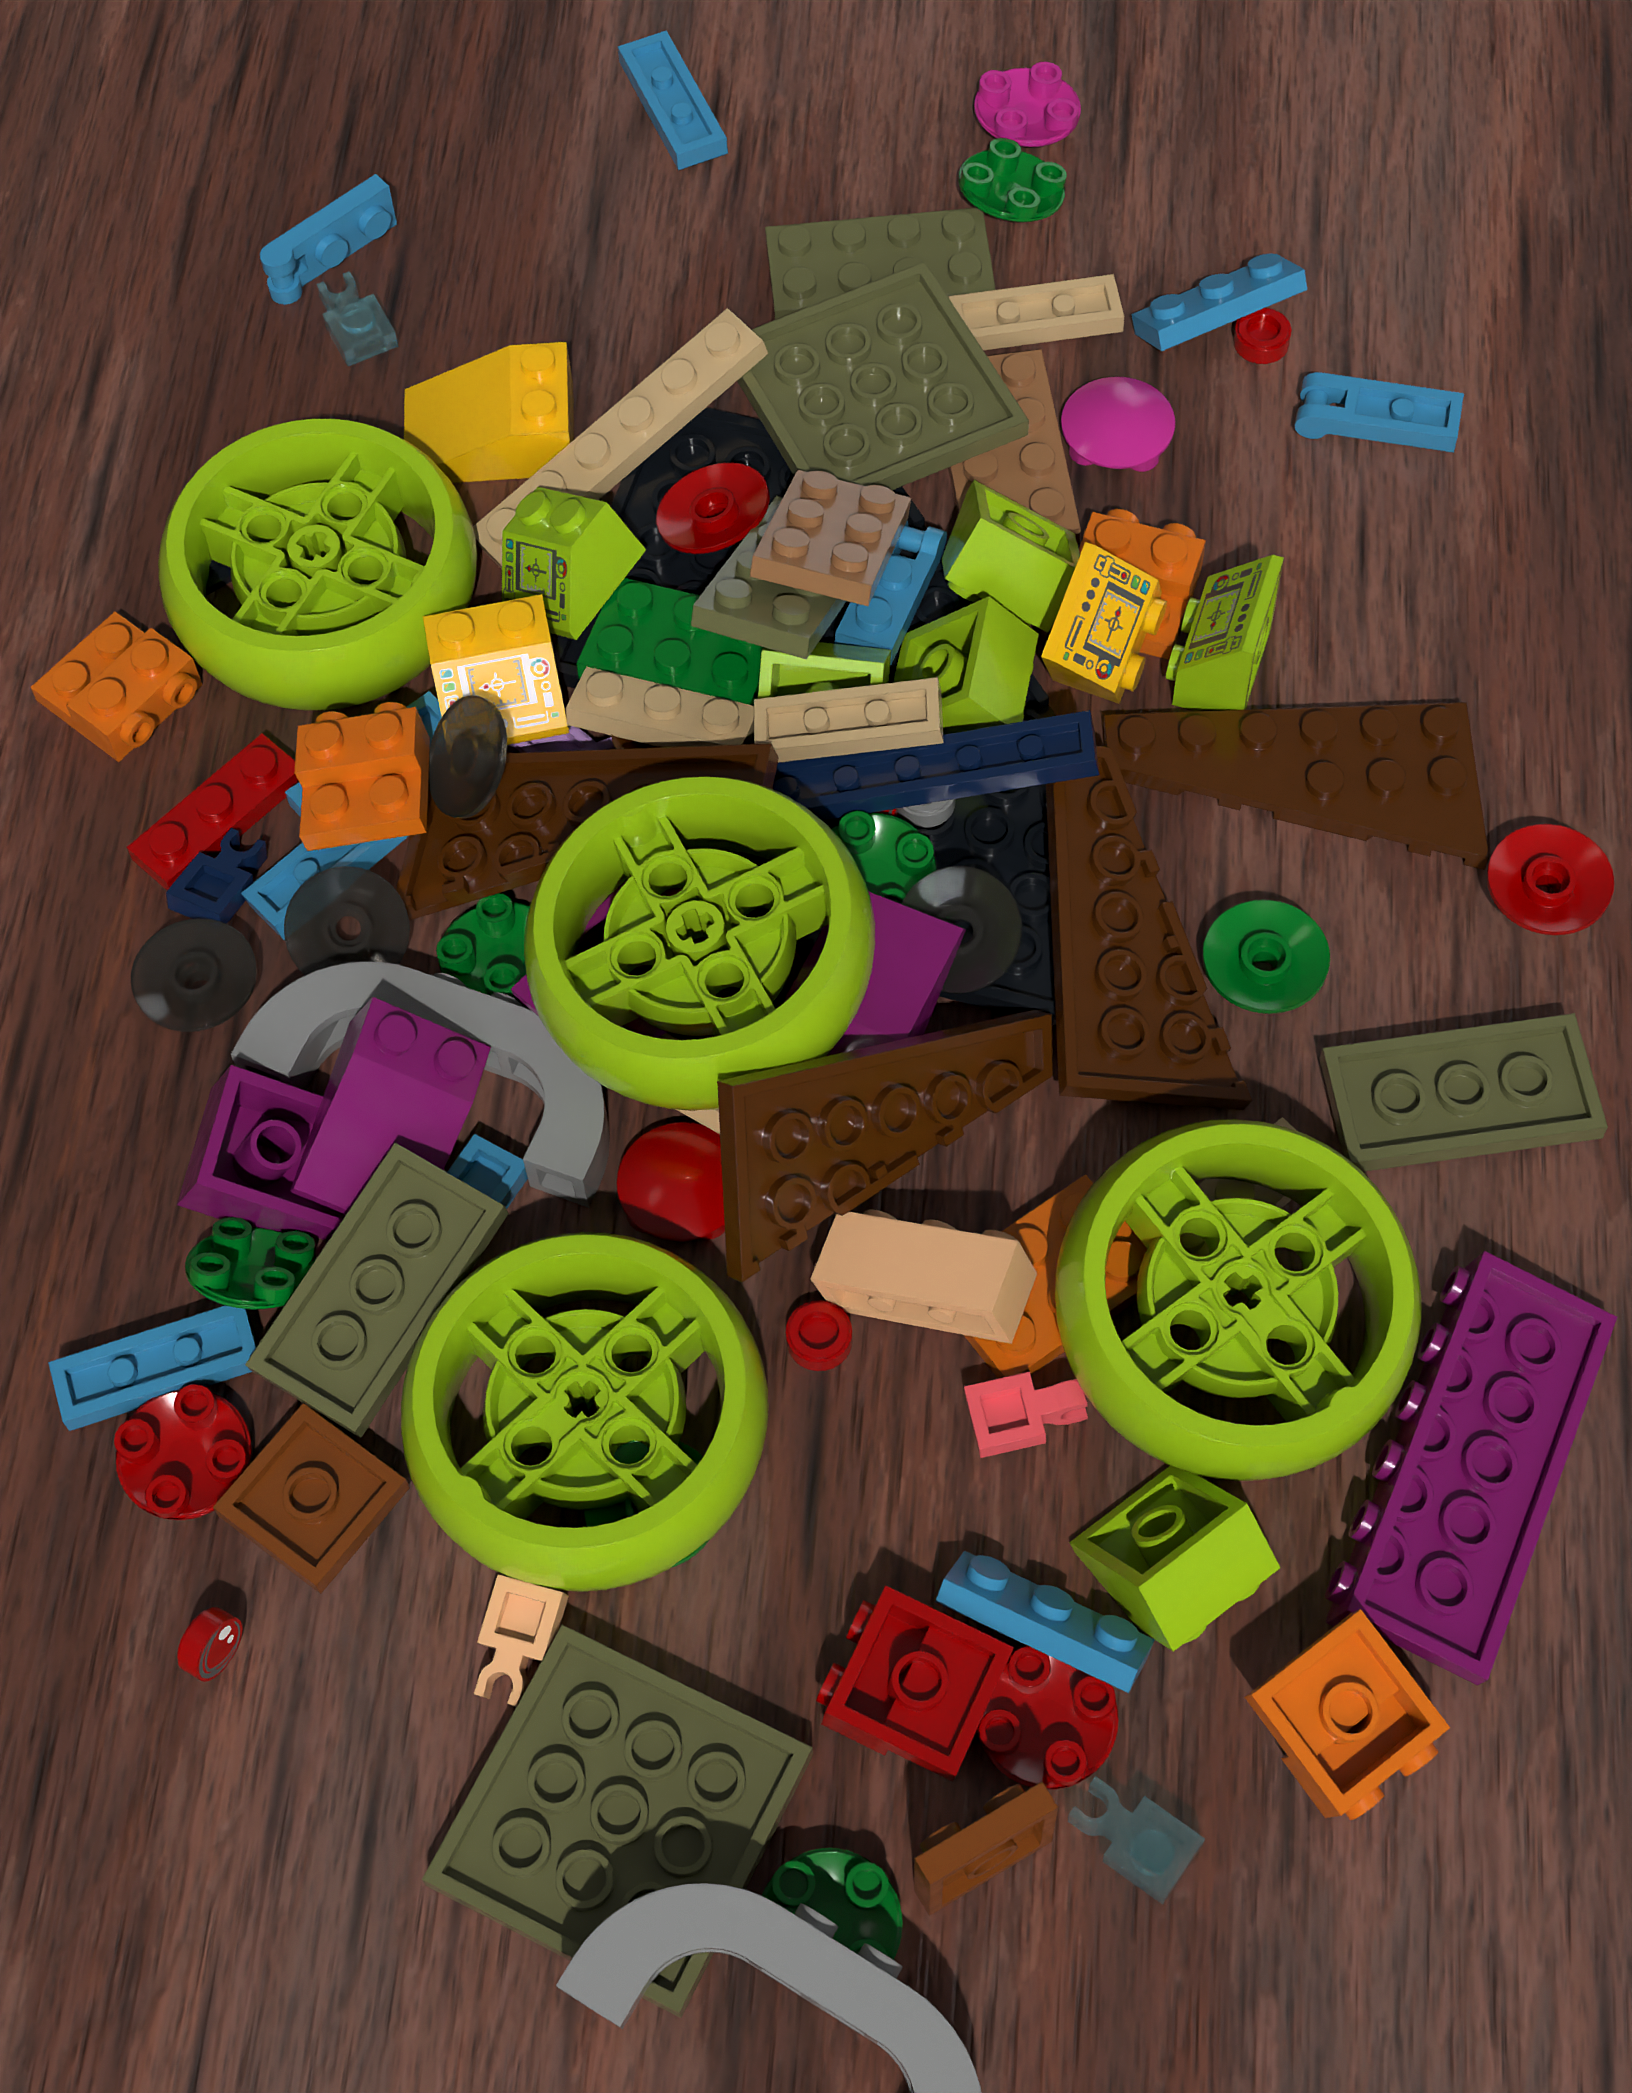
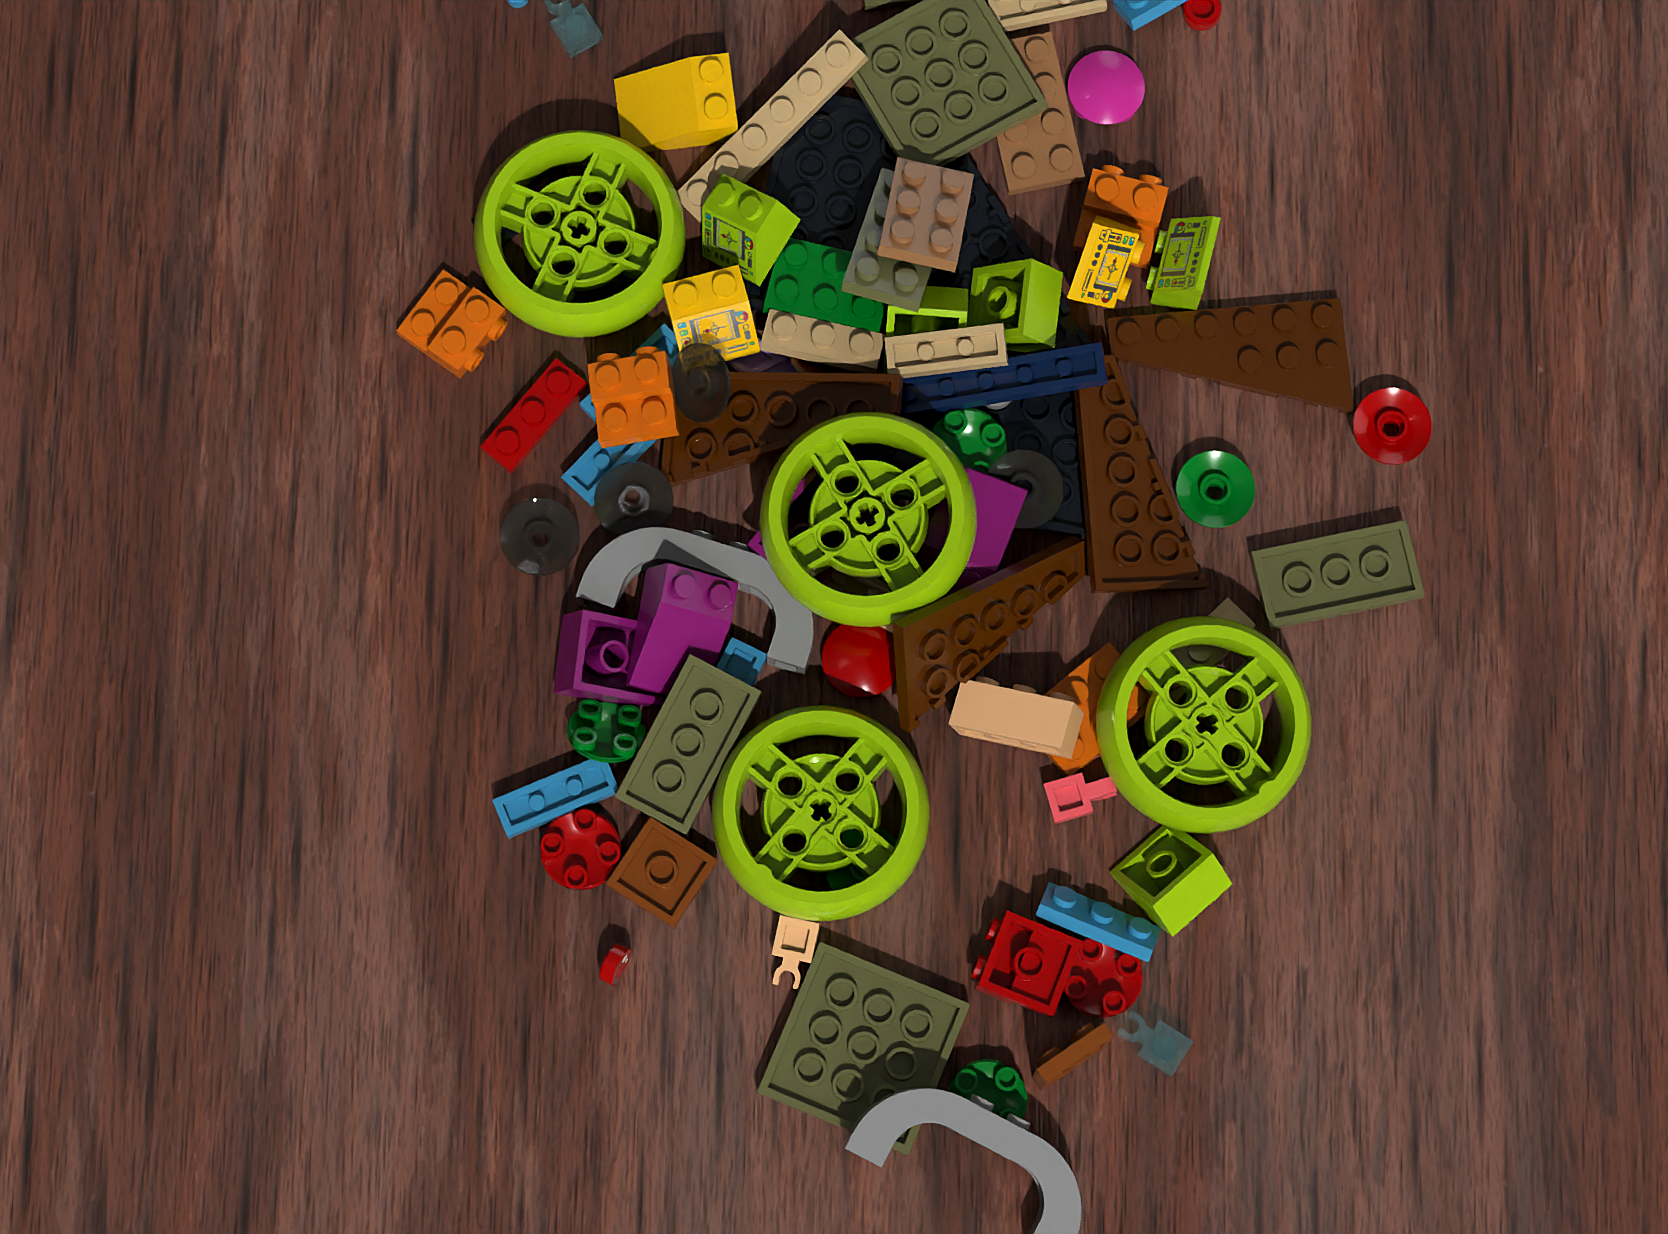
camera: 10 degrees left, 15 degrees up
(214, 885) = (543, 471): dark blue plate -> none
(486, 946) = (729, 507): green dish -> none
(712, 508) = (832, 171): red dish -> none
(819, 1335) = (953, 753): red tile -> none
(897, 594) = (971, 244): dark azure plate -> none
(1010, 556) = (1042, 208): lime slope -> none
(1348, 1717) = (1272, 969): orange plate -> none
(1379, 411) = (1282, 73): dark azure plate -> none
(1472, 1466) = (1342, 812): magenta bracket -> none

